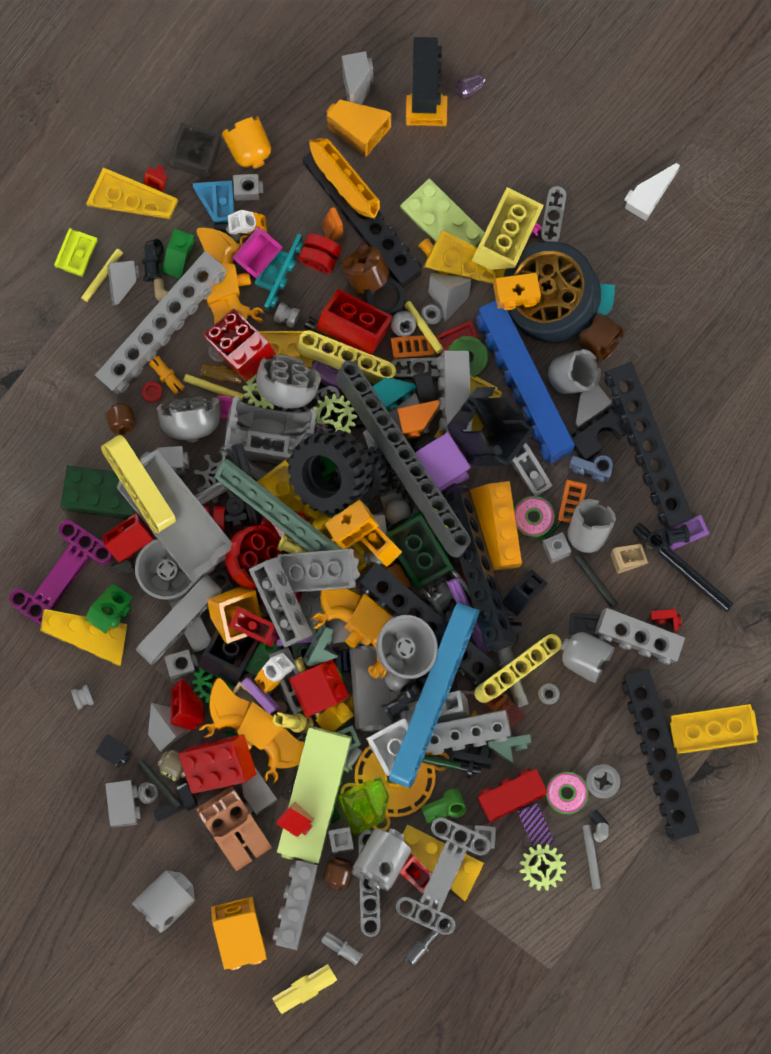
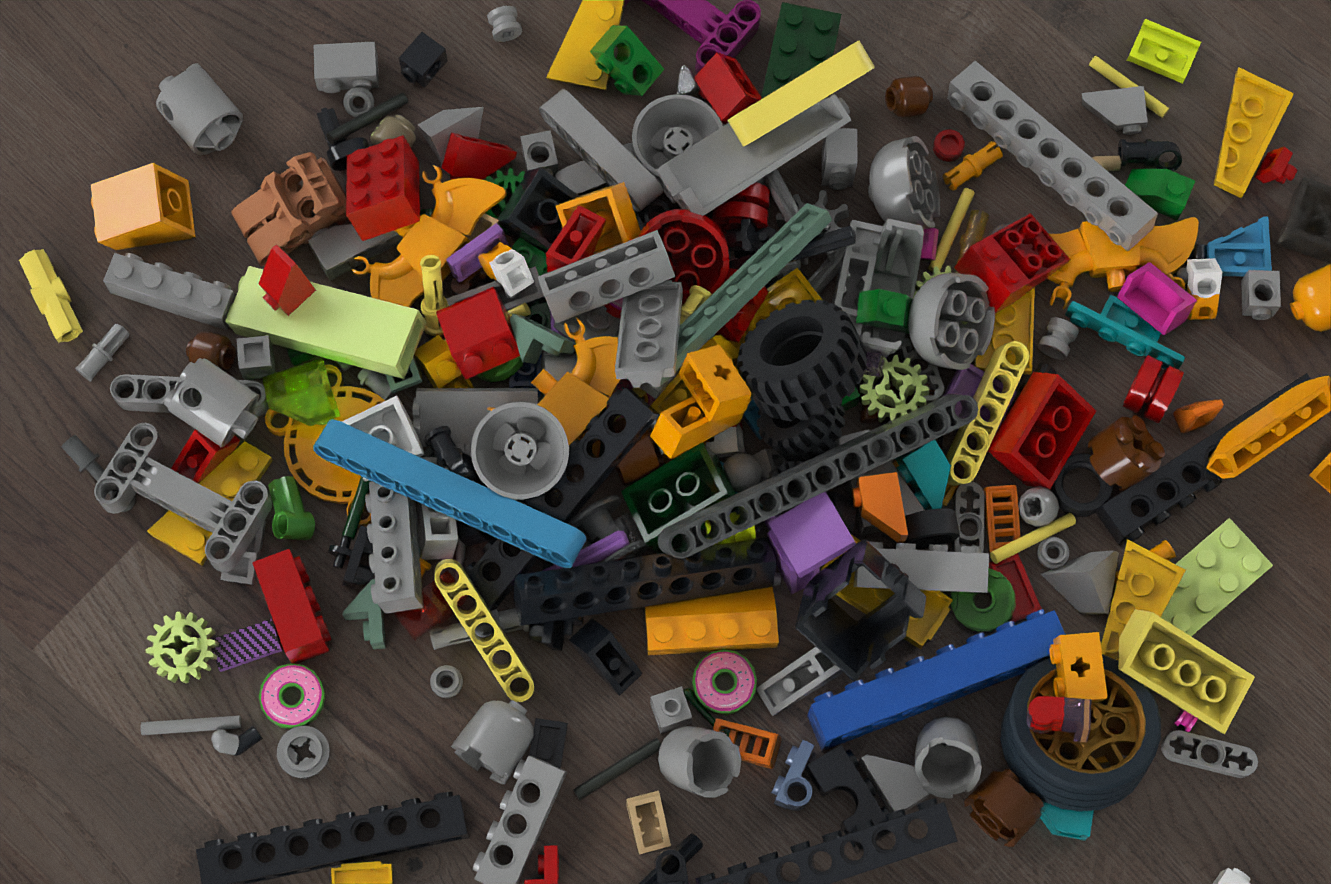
camera: 90 degrees right, 5 degrees down
(285, 423) = (884, 309): none -> green slope
(549, 300) = (1060, 714): none -> leg

